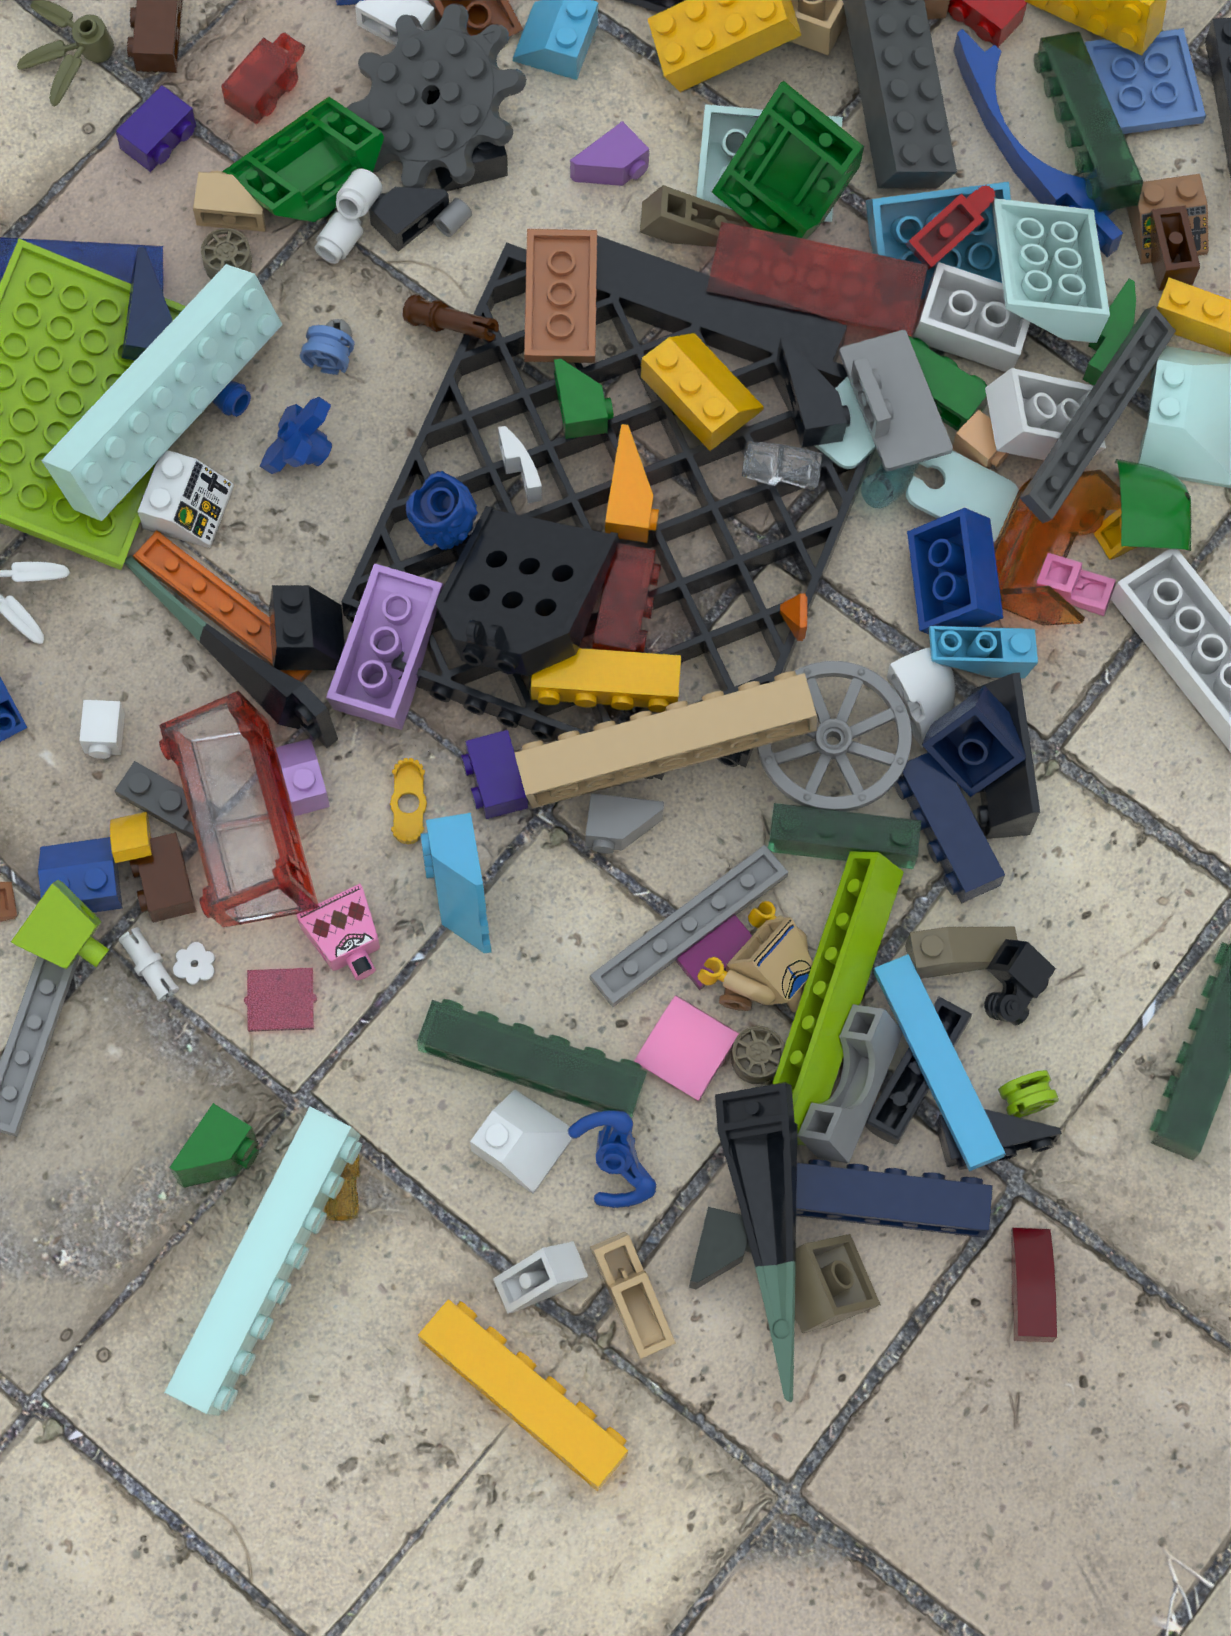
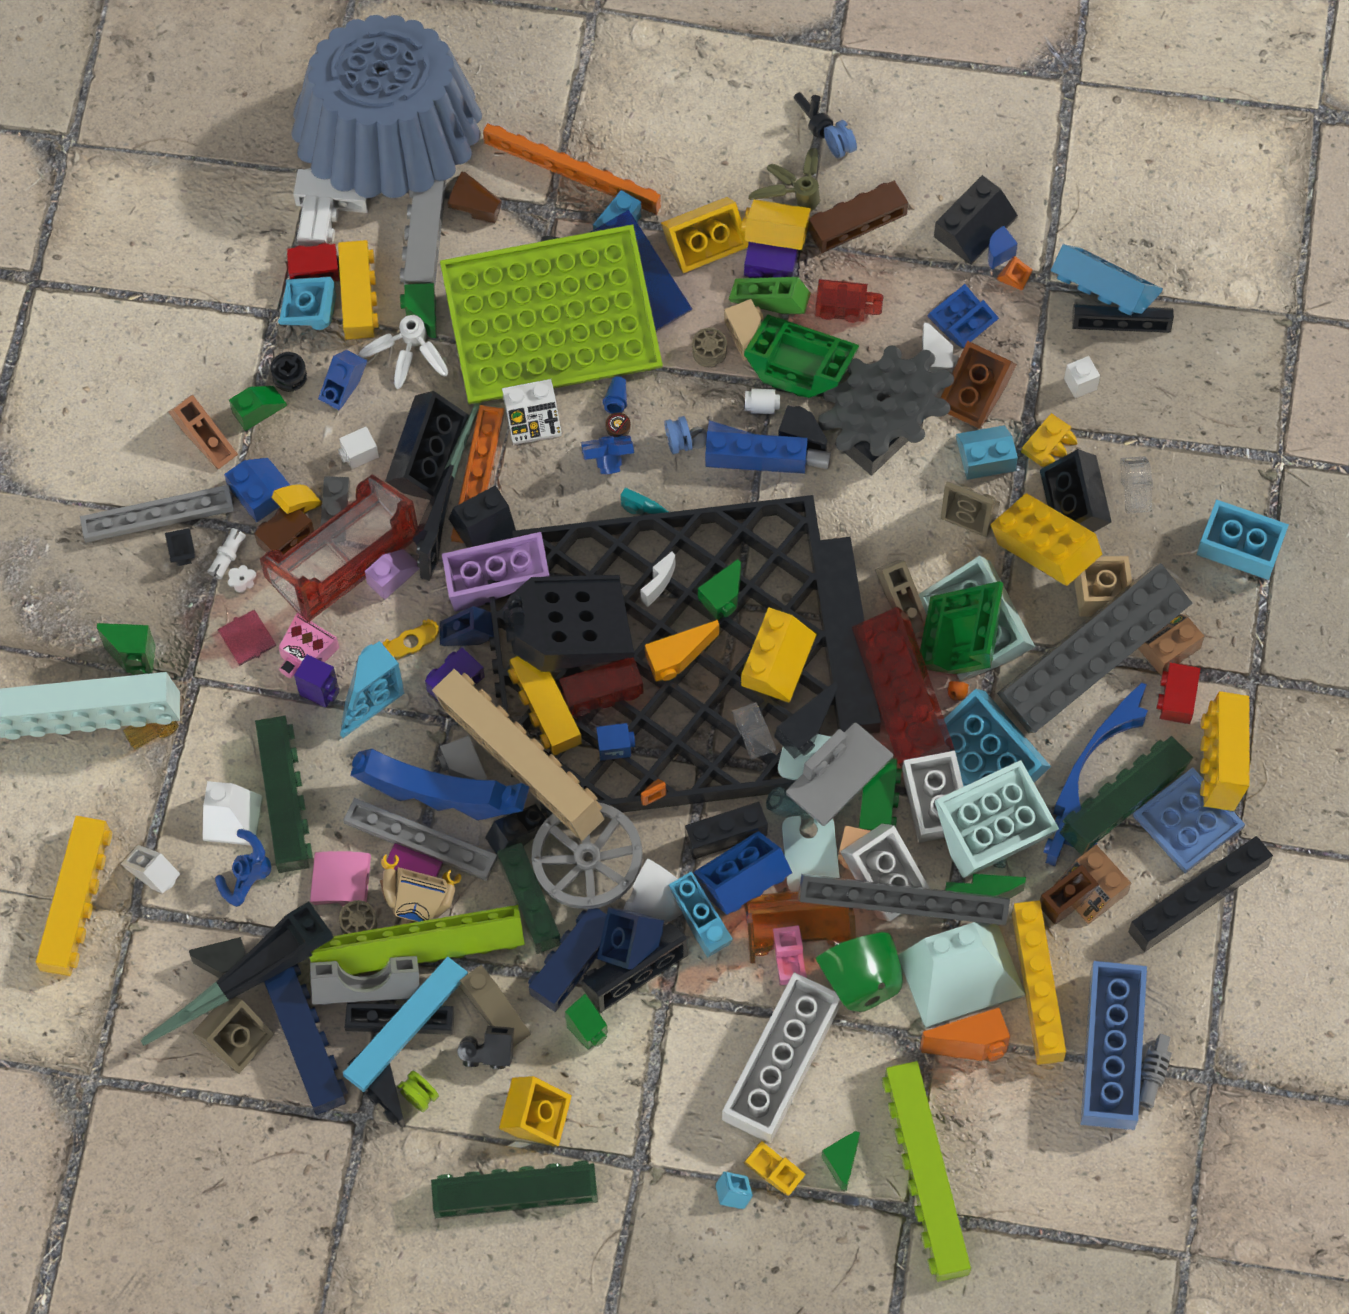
camera: 65 degrees right, 5 degrees down
(61, 929) = (213, 490): lime torso -> none
(68, 178) = (705, 234): none -> yellow slope
(104, 1016) = (180, 546): none -> black bracket
(116, 90) = (776, 224): none -> yellow brick
(147, 308) = (626, 324): dark blue slope -> none
(151, 646) = (425, 444): none -> black slope
(162, 392) = (583, 357): light aqua brick -> none
(202, 149) = (774, 294): none -> bright green slope
(263, 413) = (618, 425): none -> tile
(358, 194) = (790, 393): white brick -> none
(377, 301) = (748, 451): none -> blue wedge
(388, 444) = (637, 503): none -> teal plate
(408, 937) = (316, 681): none -> dark purple brick
(436, 726) = (467, 628): none -> dark blue slope
(439, 316) = (738, 484): reddish brown pin -> none
(442, 511) = (598, 550): blue hair -> none
(560, 295) = (791, 543): nougat plate -> none
(611, 158) = (917, 526): medium lavender slope -> none
(629, 88) = (968, 508): none -> dark tan slope
(632, 1294) = (167, 925): tan slope -> none
(648, 862) = (403, 781): none -> blue arch
(706, 626) = (615, 741): none -> blue brick
(746, 805) = (515, 828): none -> black slope
(842, 229) = (957, 690): none -> orange hinge
(882, 568) = (725, 830): none -> black brick
(950, 226) = (982, 744): red hinge -> none
(1033, 1285) = (296, 1155): dark red slope -> none
(1046, 852) = (586, 1023): none -> green slope
(1122, 971) = (535, 1111): none -> yellow slope

